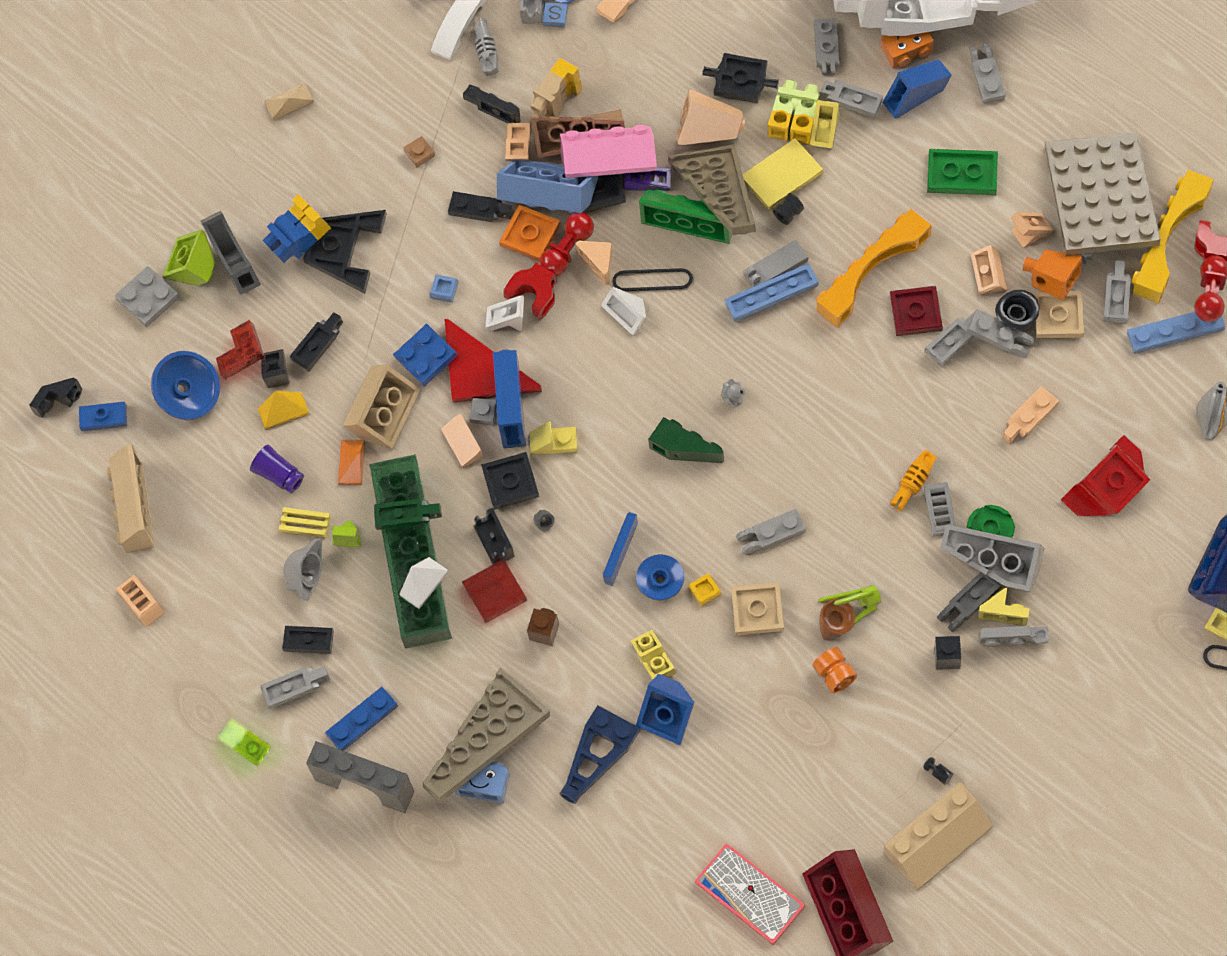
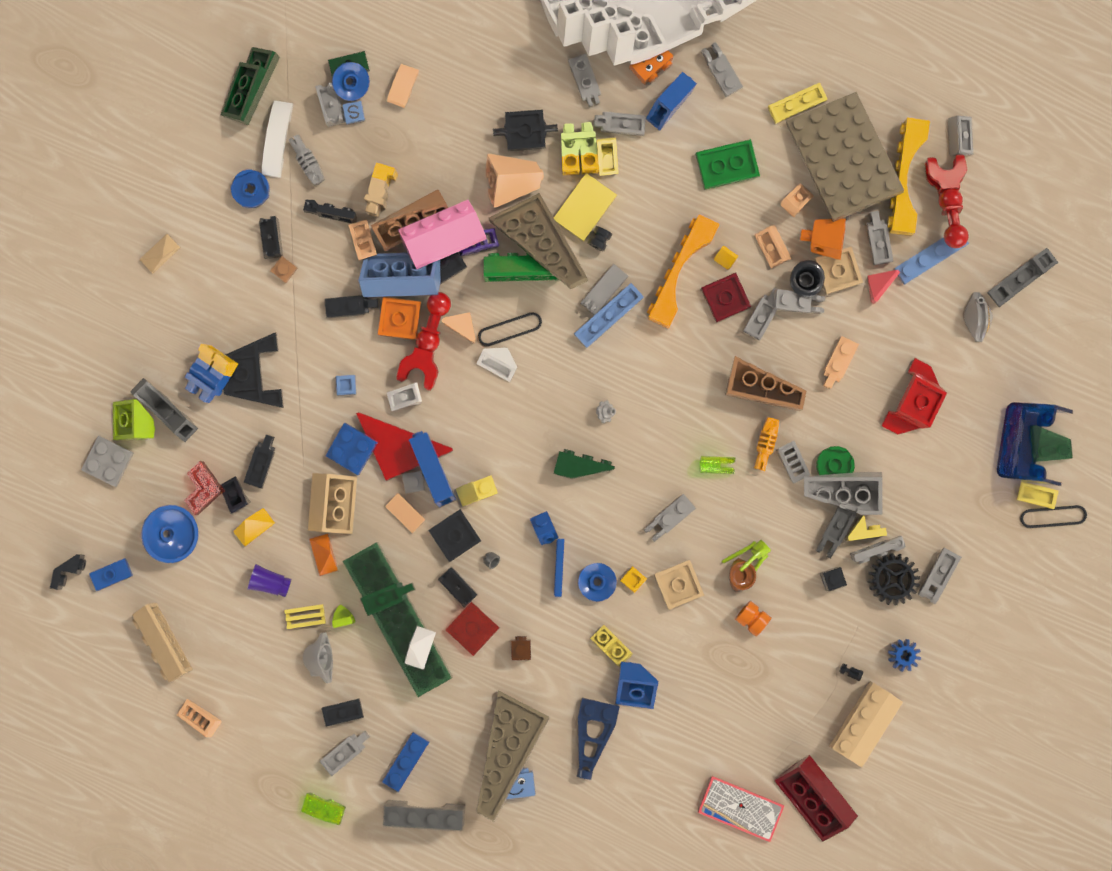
camera: 25 degrees left, 20 degrees up
(412, 72) = (260, 193): none -> blue plate
(417, 114) = (271, 237): none -> black hinge
(617, 502) = (544, 528): none -> blue bracket
(841, 485) = (712, 464): none -> clear neon green hinge
(928, 413) = (757, 385): none -> medium nougat wedge
(929, 266) = (725, 257): none -> yellow slope
(1000, 768) = (910, 658): none -> blue gear
(1039, 665) = (899, 586): none -> black gear
(1064, 128) = (797, 103): none -> light yellow tile
(1082, 687) = (939, 575): none -> light grey plate
(1107, 341) = (879, 283): none -> coral slope

